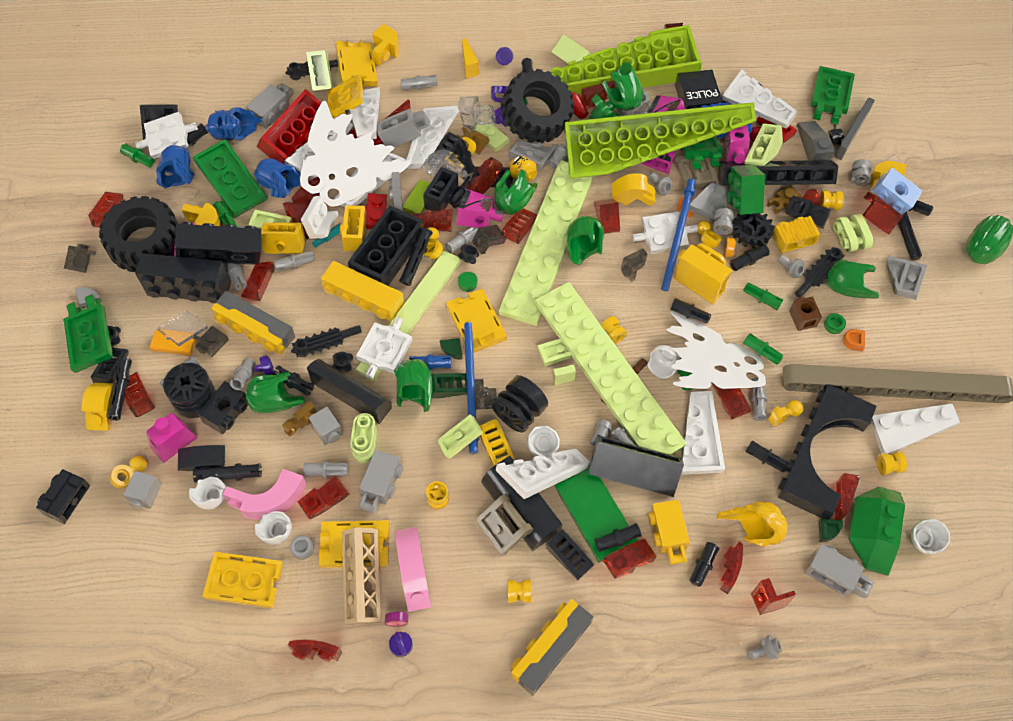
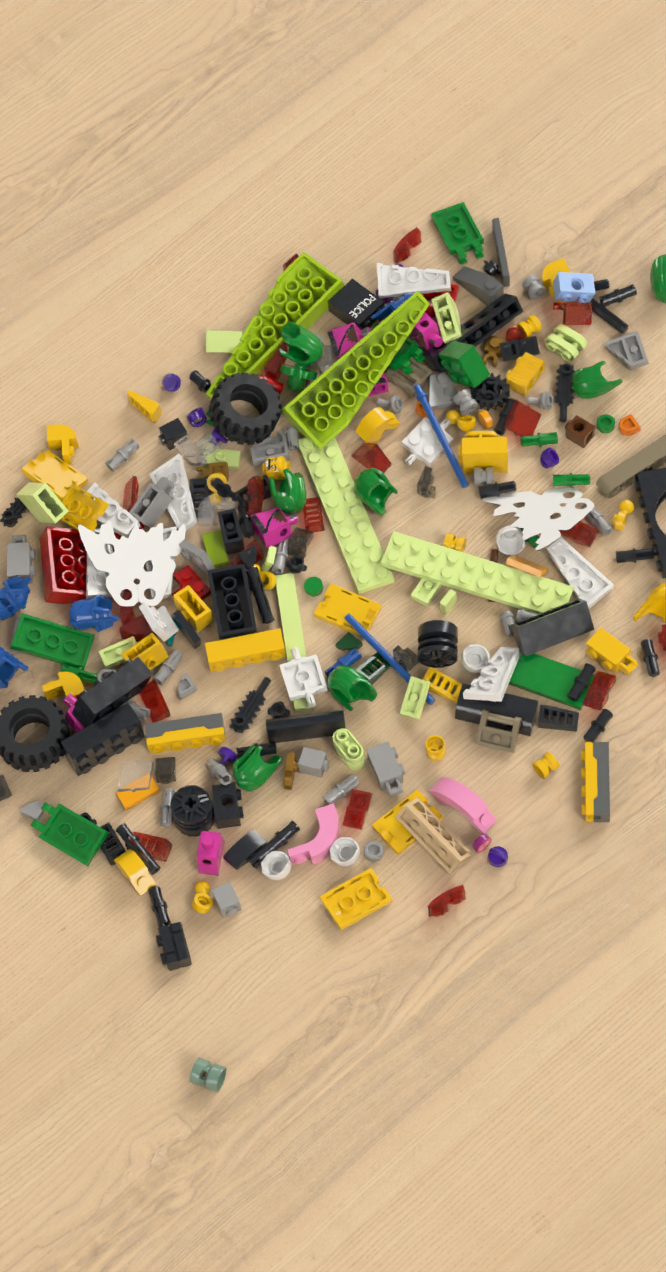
camera: 30 degrees left, 0 degrees up
(90, 451) = (159, 906): none -> black pin
(293, 287) = (186, 687): none -> light grey tile
(334, 241) = (186, 629): none -> black tile
(433, 218) = (248, 557): none -> black tile
(451, 233) = (268, 559): none -> yellowish green tile
(469, 88) = (171, 433): none -> black brick
(599, 591) = (598, 726): none -> black axle
(659, 394) = (526, 566): none -> light orange tile
(687, 291) = (482, 475): none -> light grey wheel
(759, 317) = (549, 458): none -> dark purple tile
(761, 269) = (522, 419): none -> clear red piece
(774, 75) = (409, 241): none -> clear red slope
(932, 226) = (618, 295): none -> black pin

